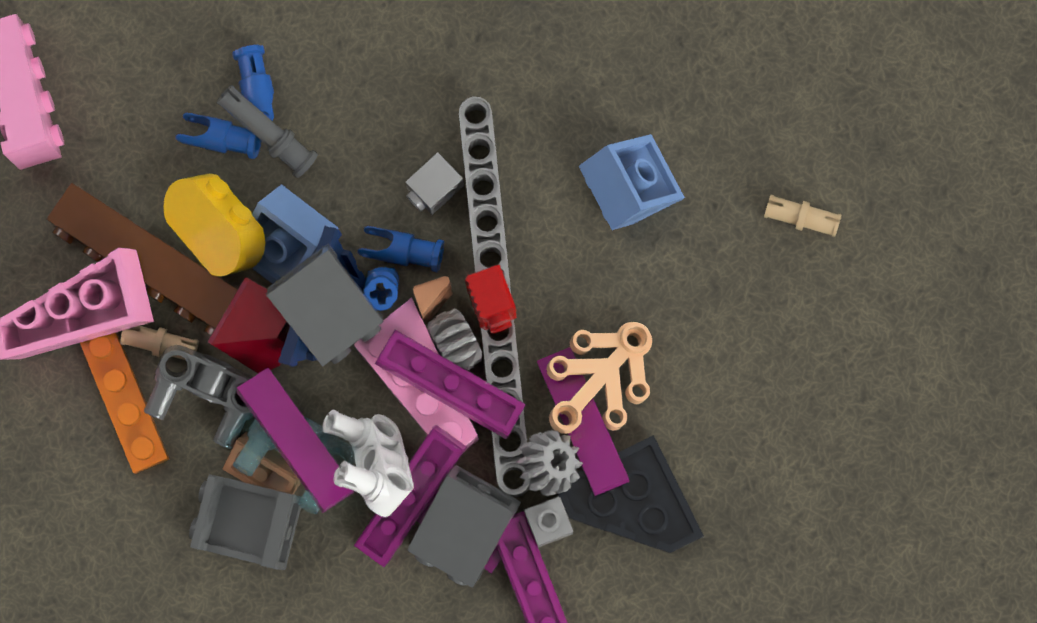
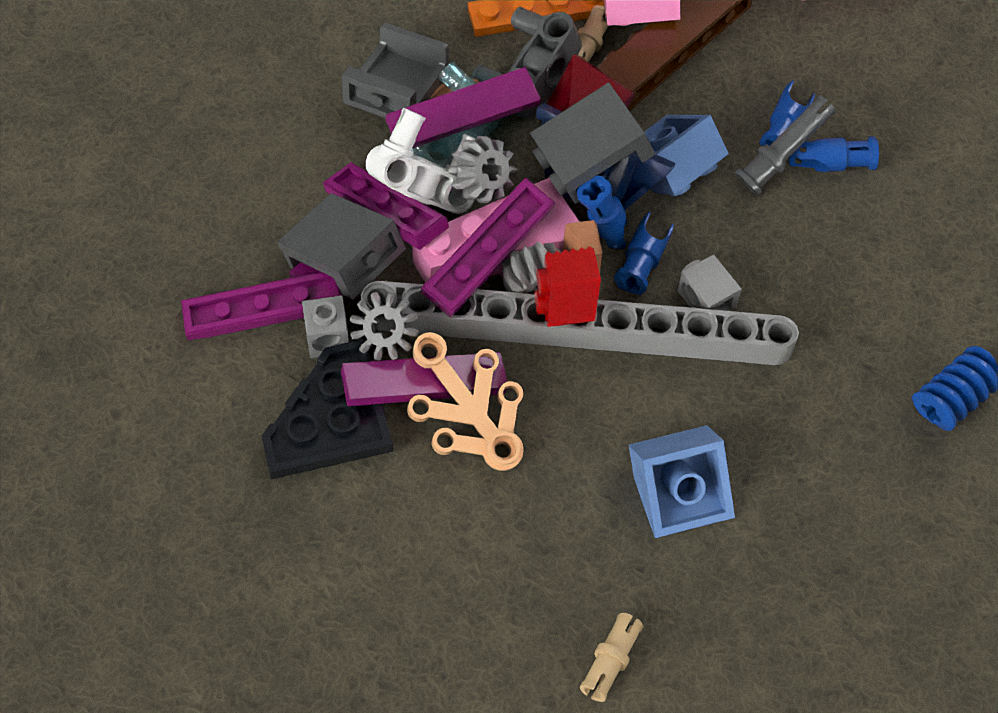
camera: 95 degrees right, 20 degrees down
(214, 224) = (695, 87): yellow brick -> none
(368, 405) = (469, 169): none -> light grey gear

